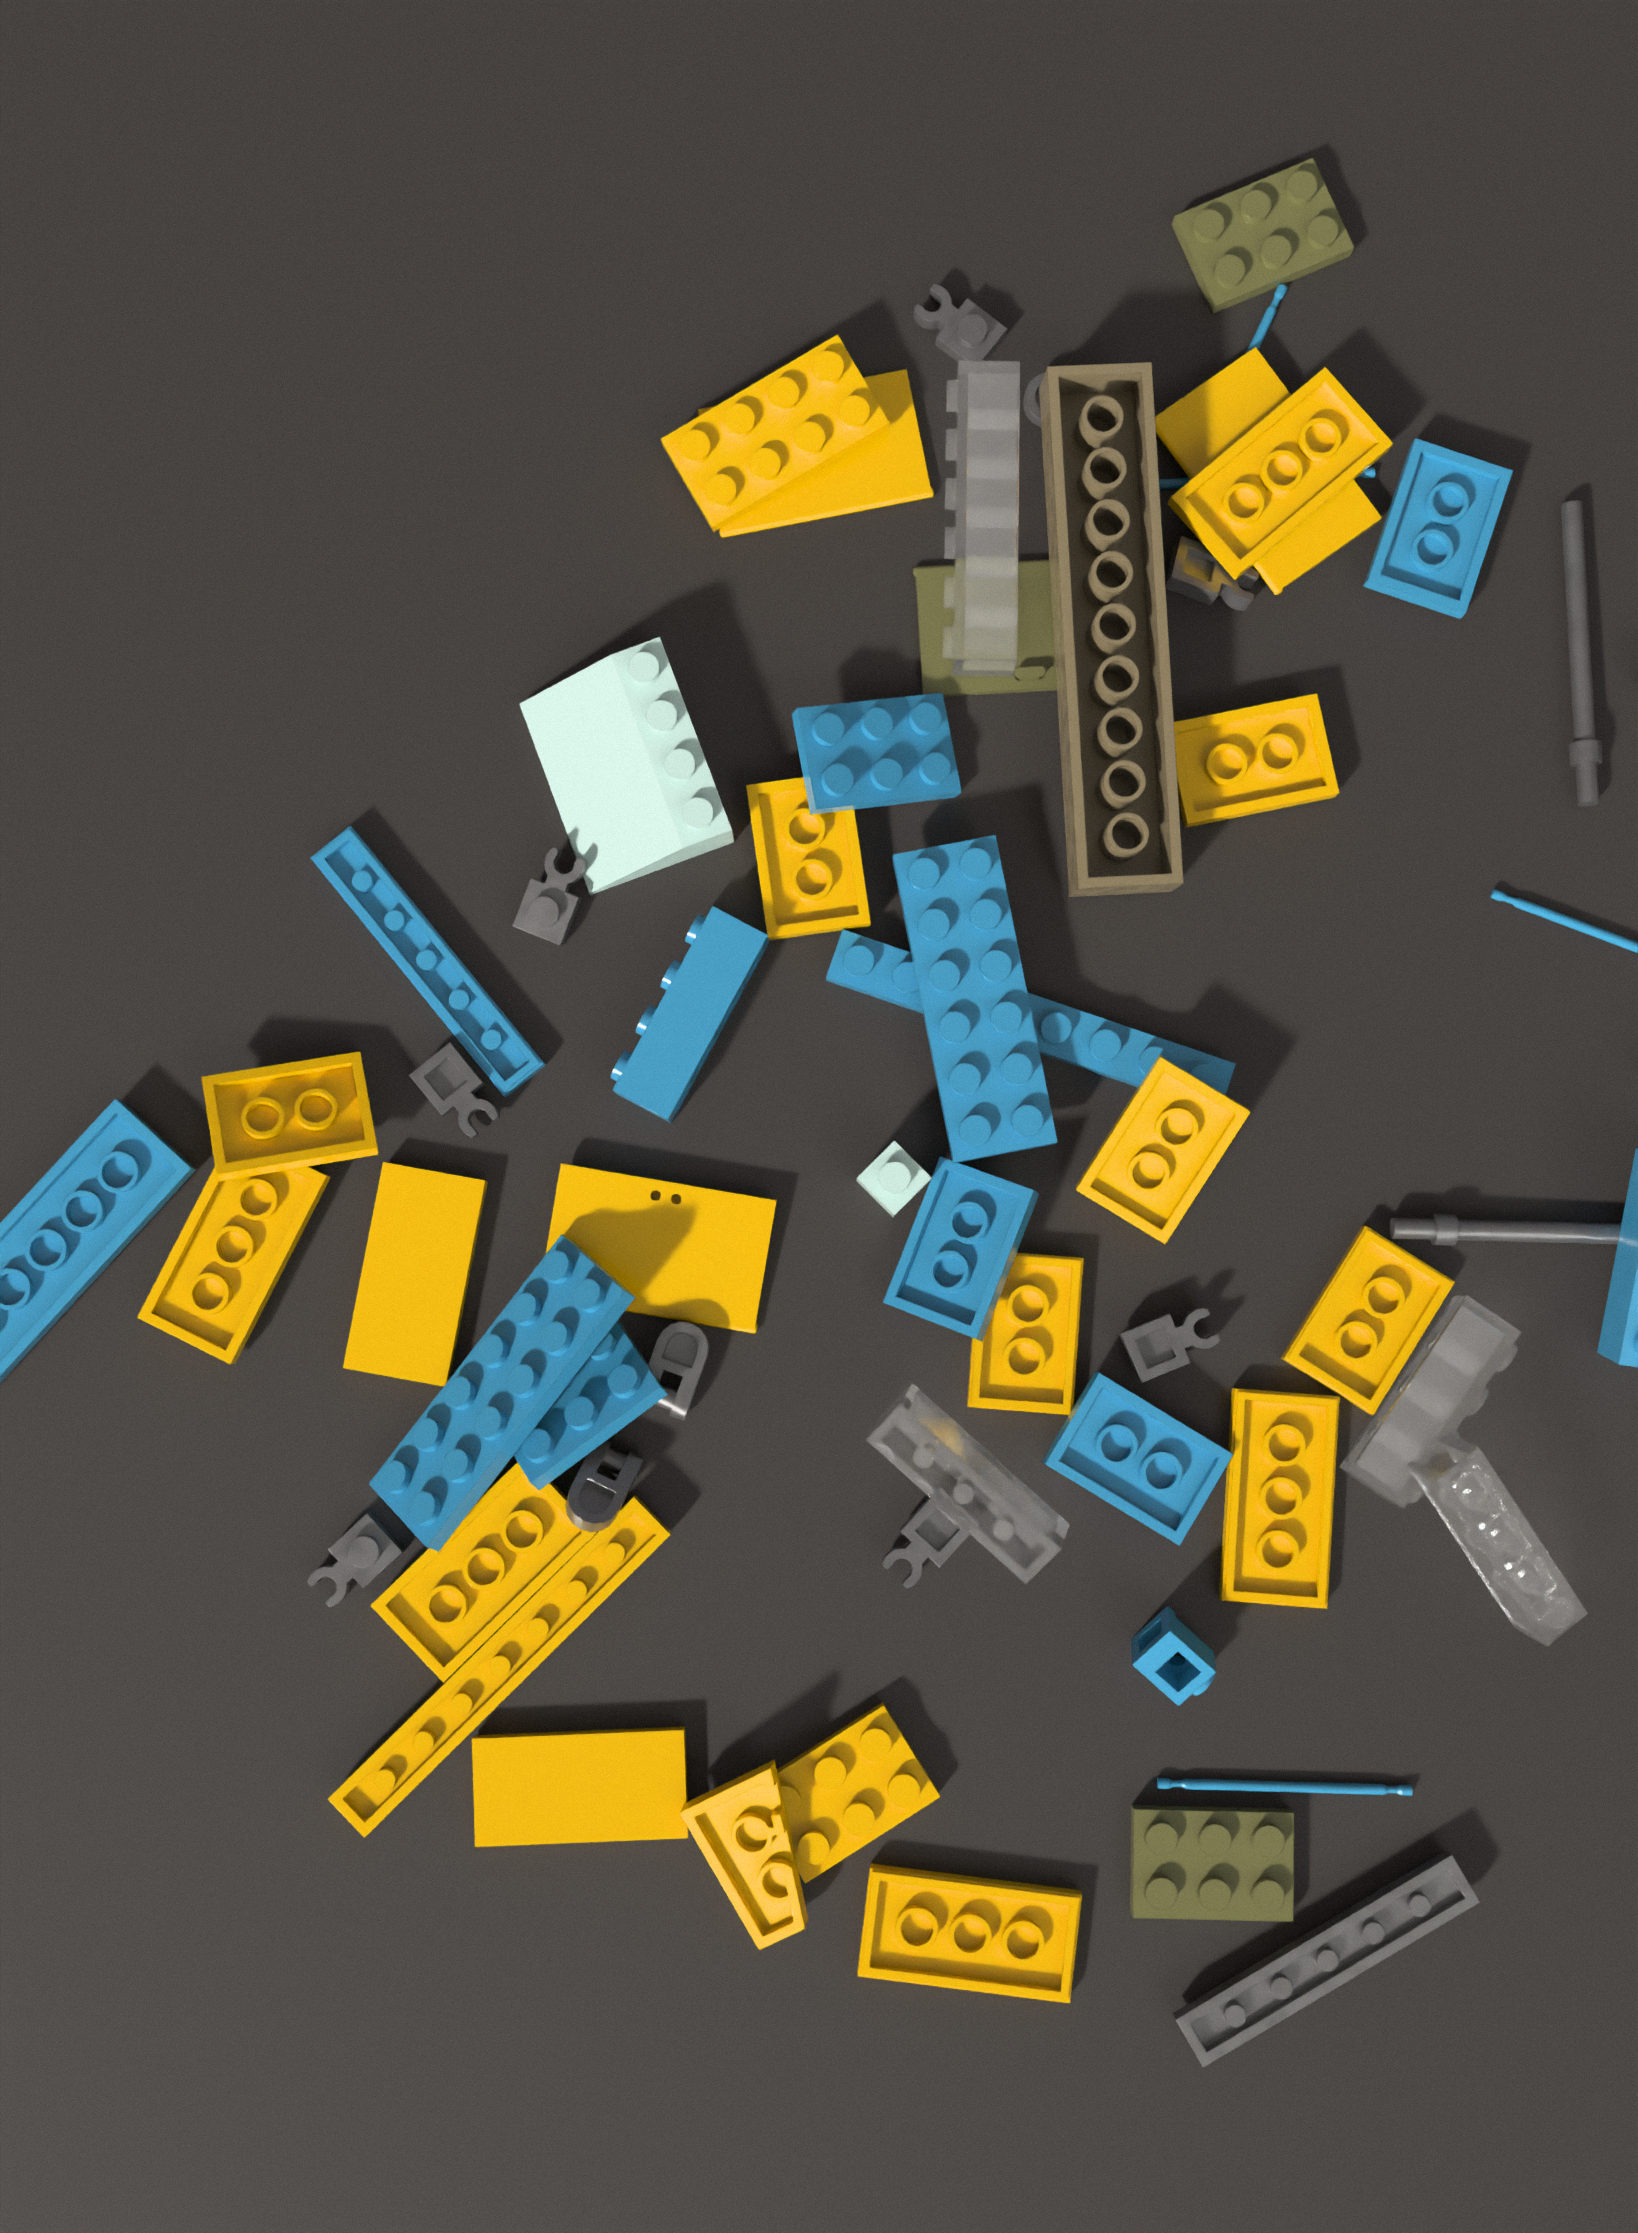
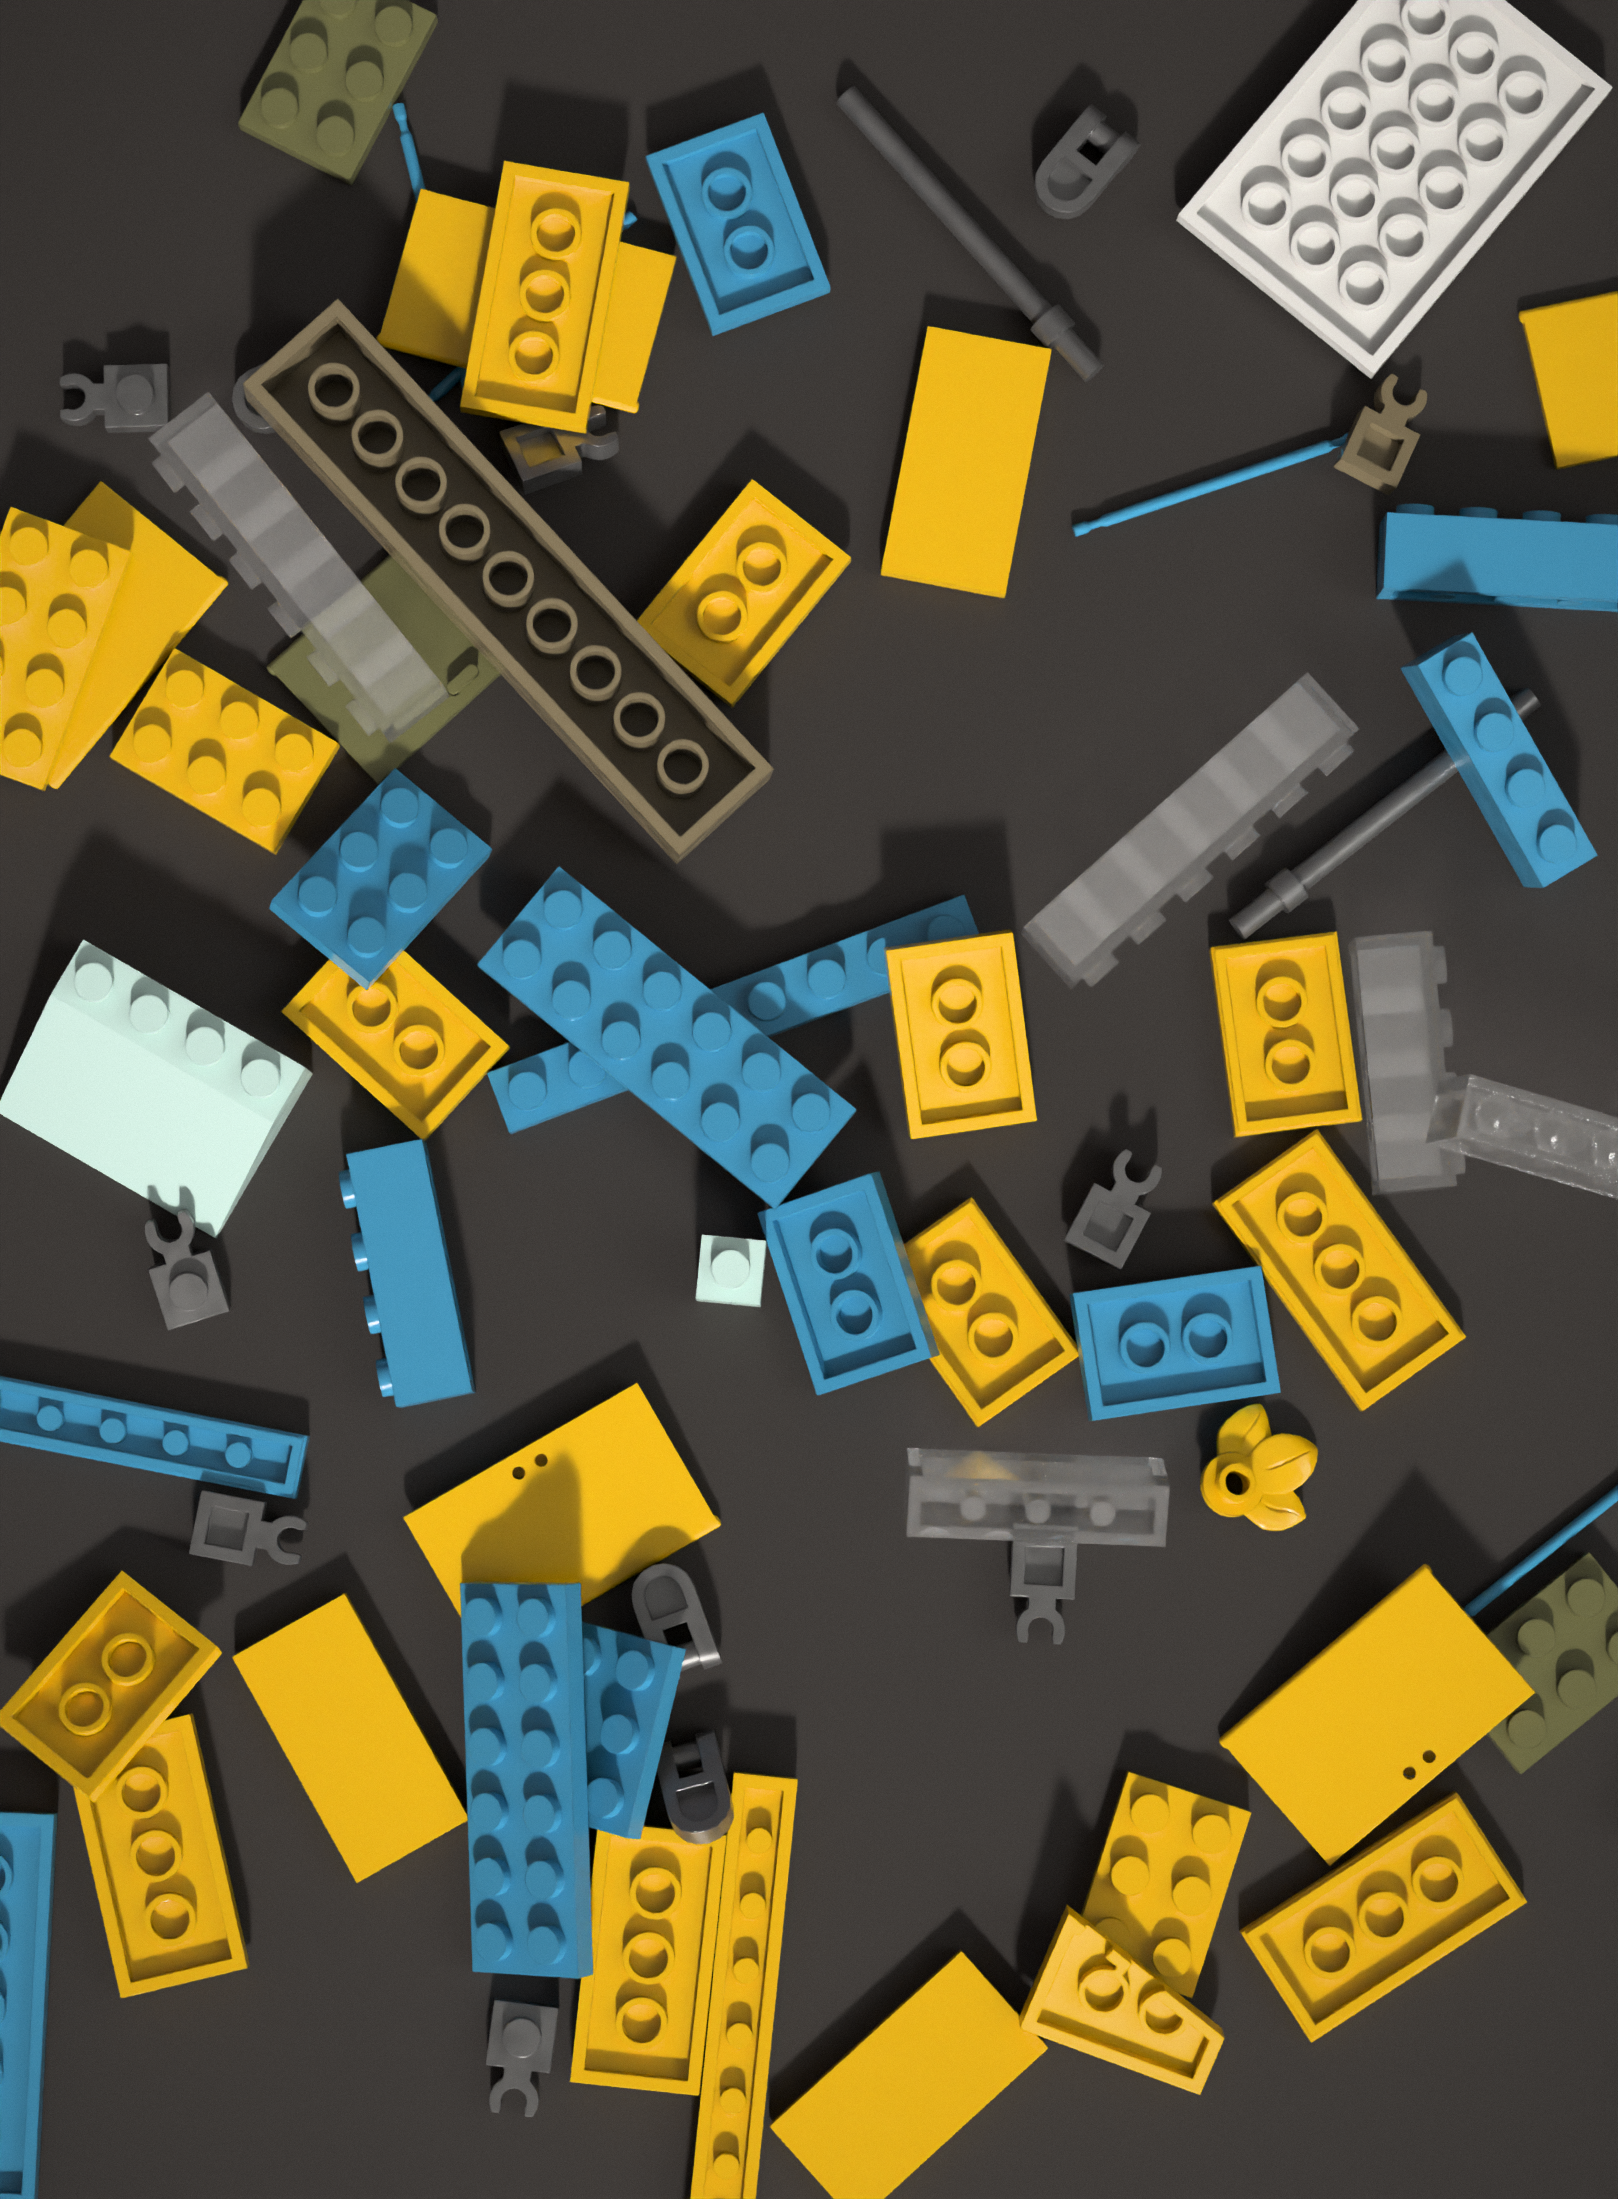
camera: 45 degrees left, 0 degrees up
(845, 597) = (225, 751): none -> yellow plate
(1073, 1798) = (1374, 1703): none -> yellow container
(1130, 1583) = (1267, 1467): none -> yellow plate
(1174, 1675) = (1373, 1519): dark azure brick -> none
(1414, 1141) = (1190, 831): none -> clear brick
(1460, 794) = (966, 462): none -> yellow tile

